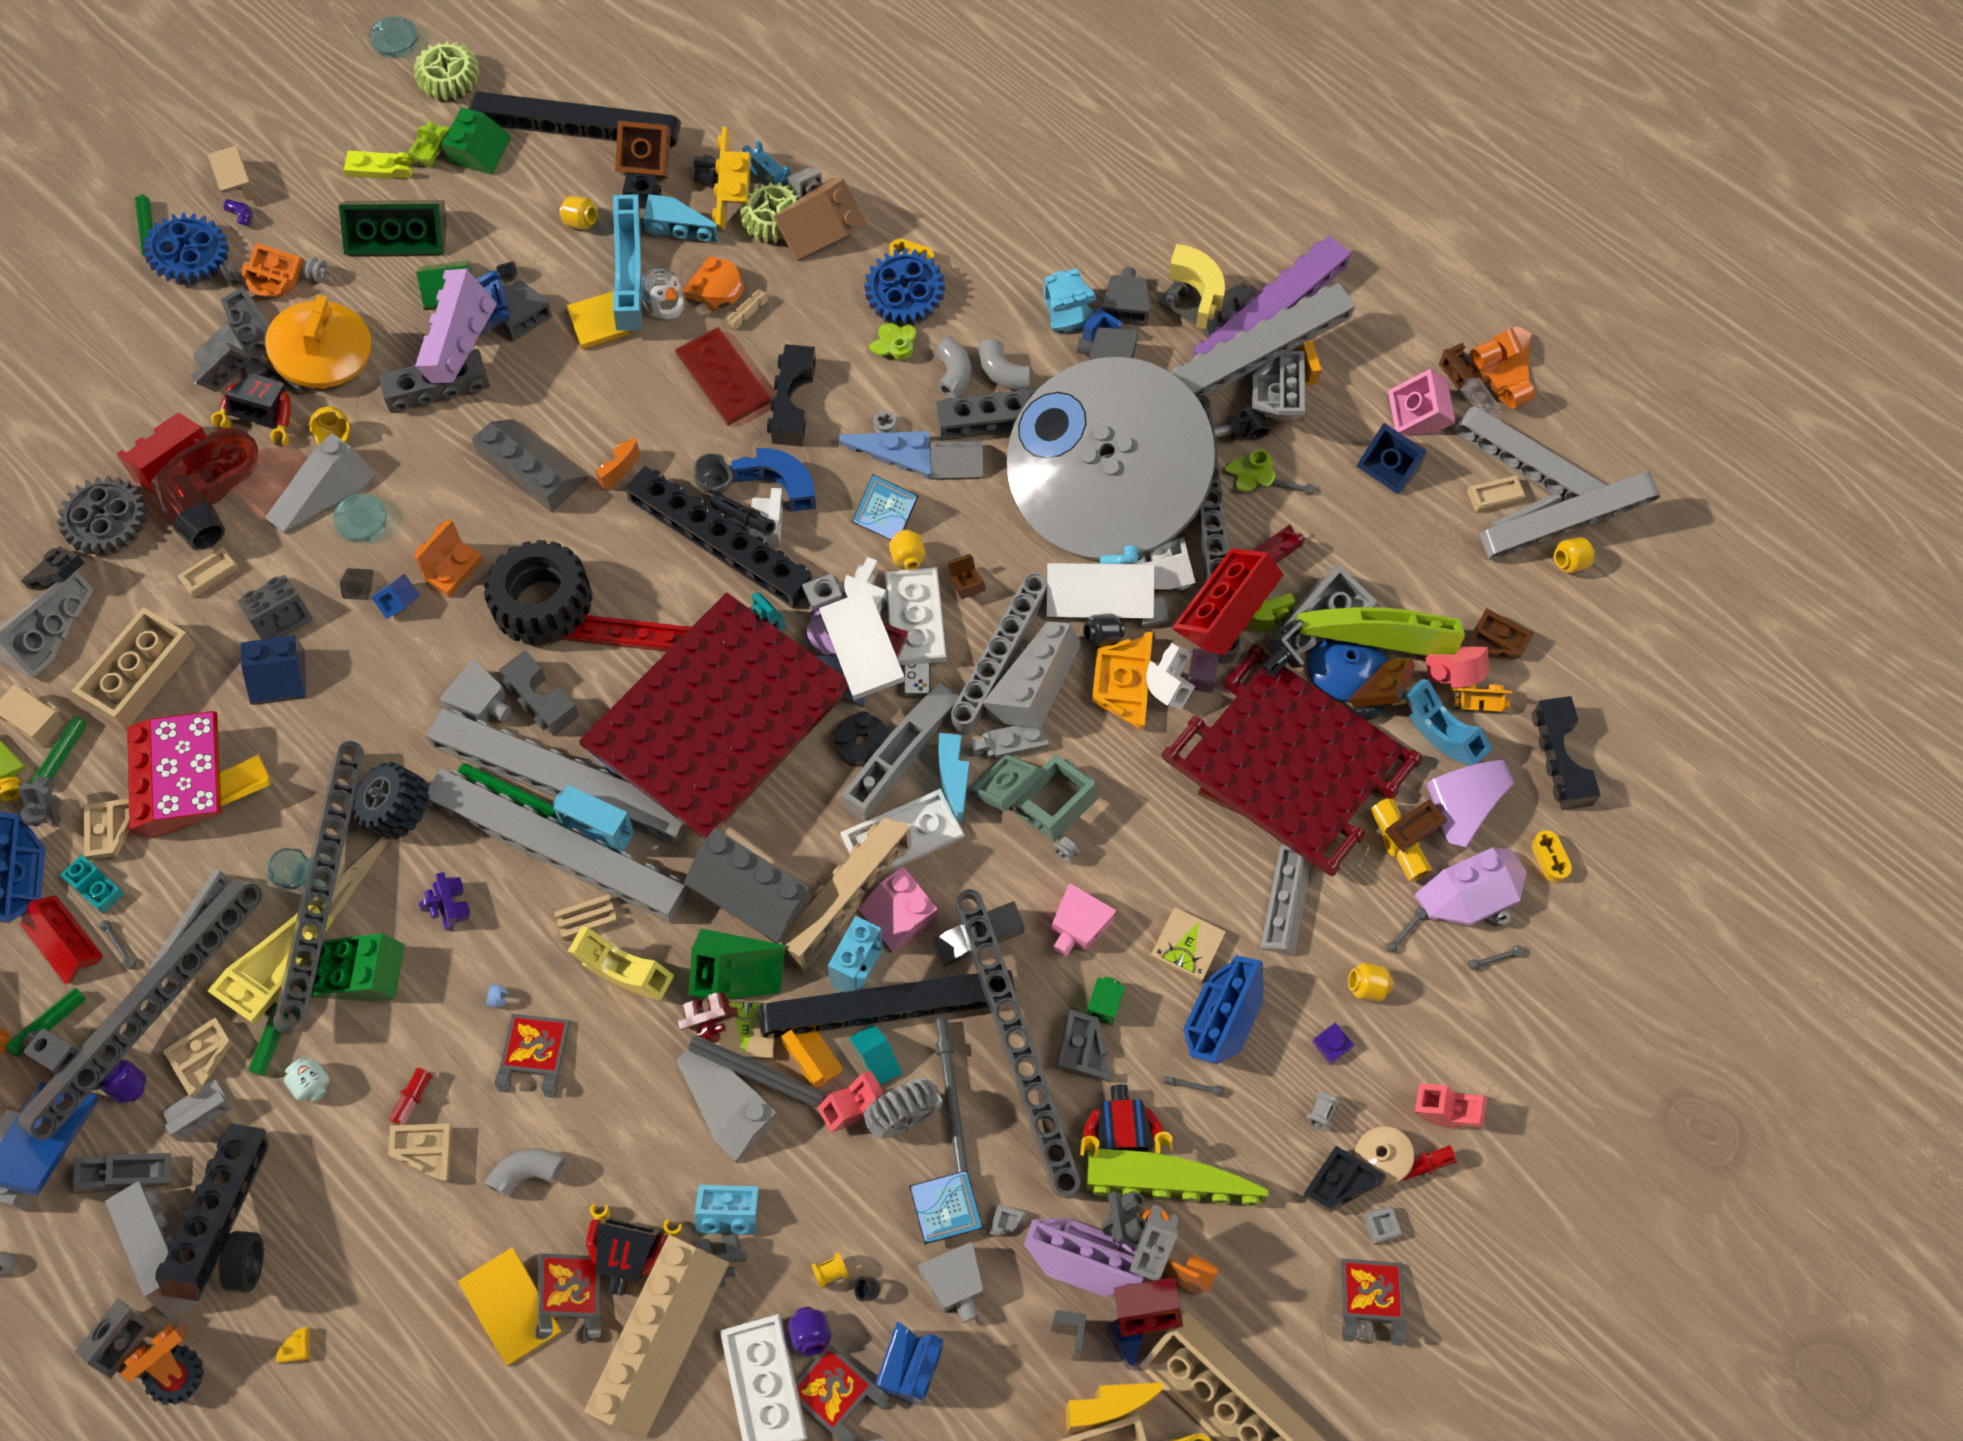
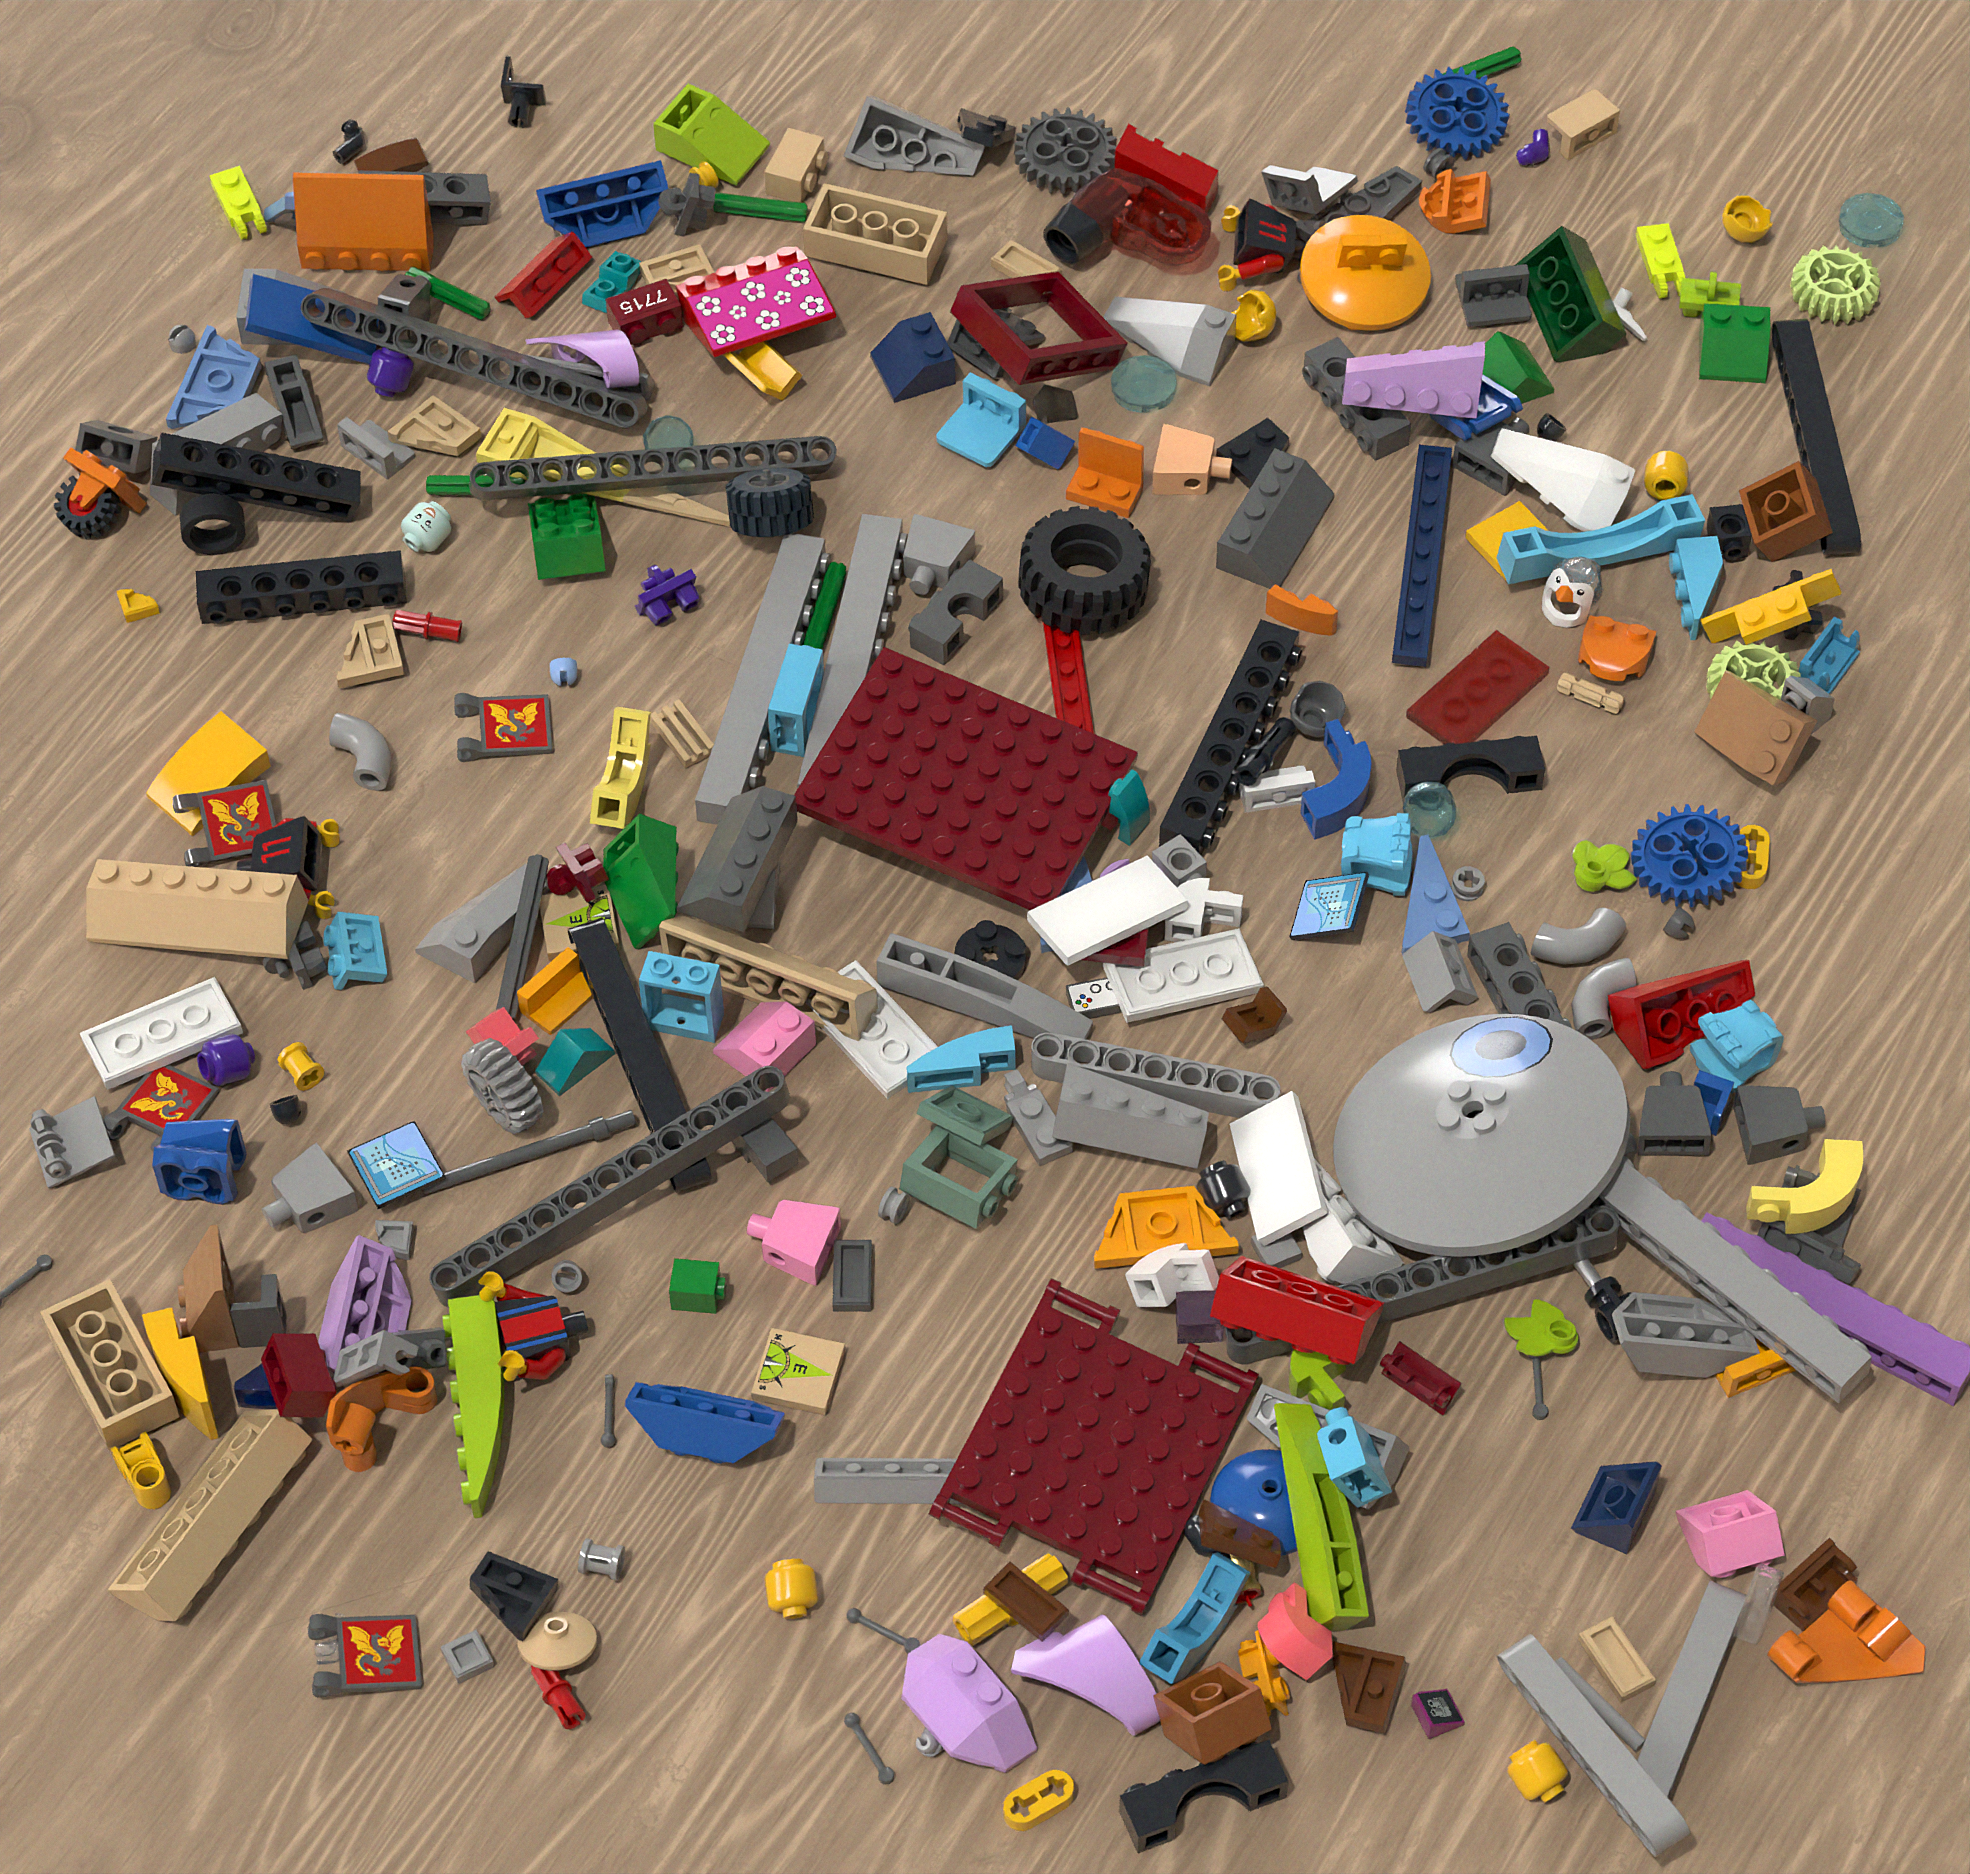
camera: 80 degrees right, 10 degrees down
(67, 1239) = (214, 380): none -> medium blue wing
(128, 962) = (567, 310): dark grey hinge -> none
(141, 863) = (645, 311): none -> dark red brick
(173, 898) = (607, 348): none -> lavender panel
(295, 594) = (1098, 351): none -> dark red window
(316, 269) = (1479, 249): light grey bush -> none
(341, 1120) = (300, 587): none -> black brick
(359, 634) = (984, 422): none -> medium azure bracket
(366, 103) = (1746, 219): none -> yellow hair
(370, 271) = (1494, 295): none -> dark grey bracket
(407, 195) = (1627, 320): none -> white bar
(452, 501) = (1186, 463): none -> light nougat torso
(458, 460) = (1252, 450): none -> black wing
(567, 263) = (1576, 480): none -> white wedge
(592, 376) = (1422, 556): none -> dark blue plate
(822, 426) = (1430, 809): none -> clear light blue hair
(853, 463) = (1380, 849): none -> medium azure piece
(907, 550) = (1273, 941): yellow head -> none
(954, 309) = (1677, 922): none -> dark grey hinge
(1024, 331) = (1663, 1015): none -> red wedge
(1047, 1374) = (208, 1296): none -> medium nougat slope
(1074, 1094) = (563, 1281): none -> light grey hinge
(1082, 1047) = (630, 1275): dark grey wing -> none
(1115, 891) = (852, 1275): none -> dark grey tile
(1130, 556) = (1329, 1180): medium azure arm -> none
(1284, 653) = (1242, 1399): black bracket -> none
(1333, 1043) = (700, 1562): dark purple plate -> none
(1364, 593) = (1352, 1458): none -> medium azure torso
(1448, 1109) = (634, 1698): coral brick -> none
(1518, 728) = (1212, 1712): none -> dark orange brick
(1520, 603) = (1436, 1712): none -> slope

